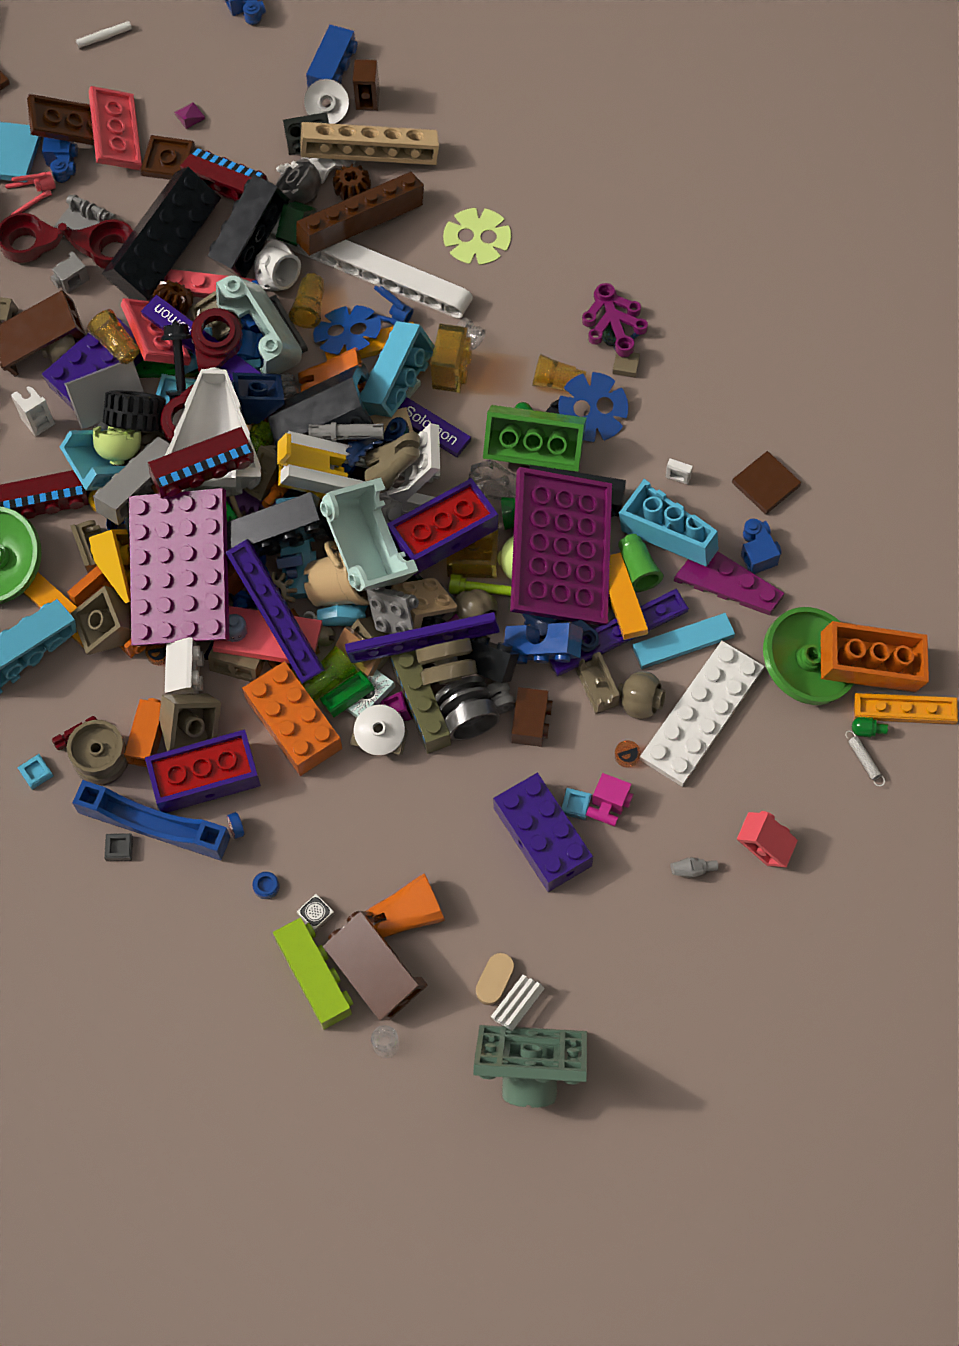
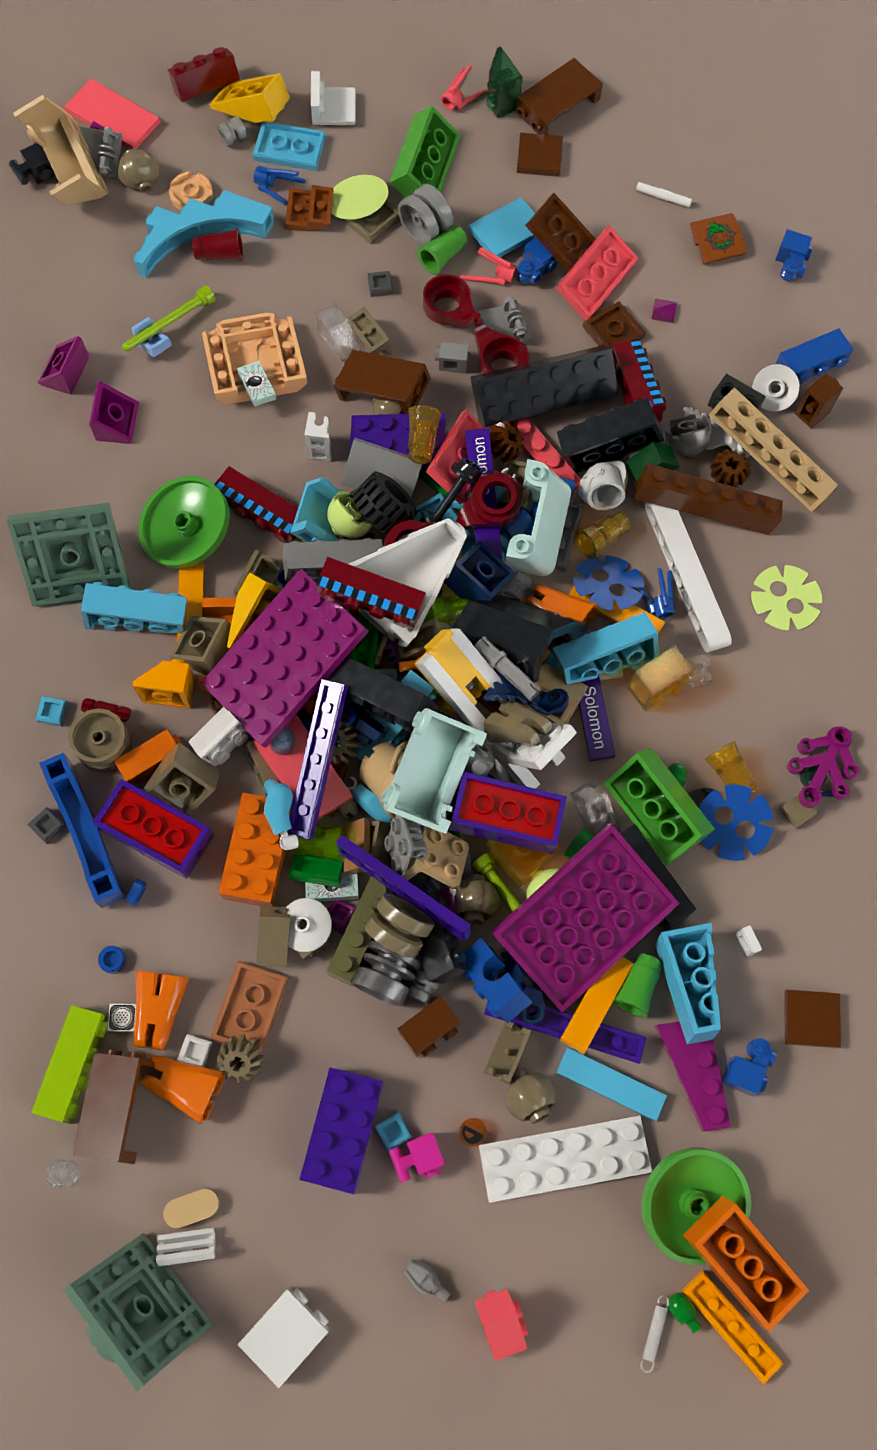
camera: 40 degrees right, 5 degrees up
(107, 670) = (167, 684): none -> light orange slope
(177, 33) = (718, 238): none -> dark orange slope
(283, 673) = (276, 811): none -> medium azure arm
(331, 880) = (156, 1007): none -> orange piece
(364, 758) = (273, 936): none -> dark tan hinge
(388, 883) = (195, 1051): none -> white tile
(396, 823) = (250, 1004): none -> nougat tile
(435, 849) = (231, 1055): none -> dark tan gear
(640, 987) = (285, 1336): none -> white panel

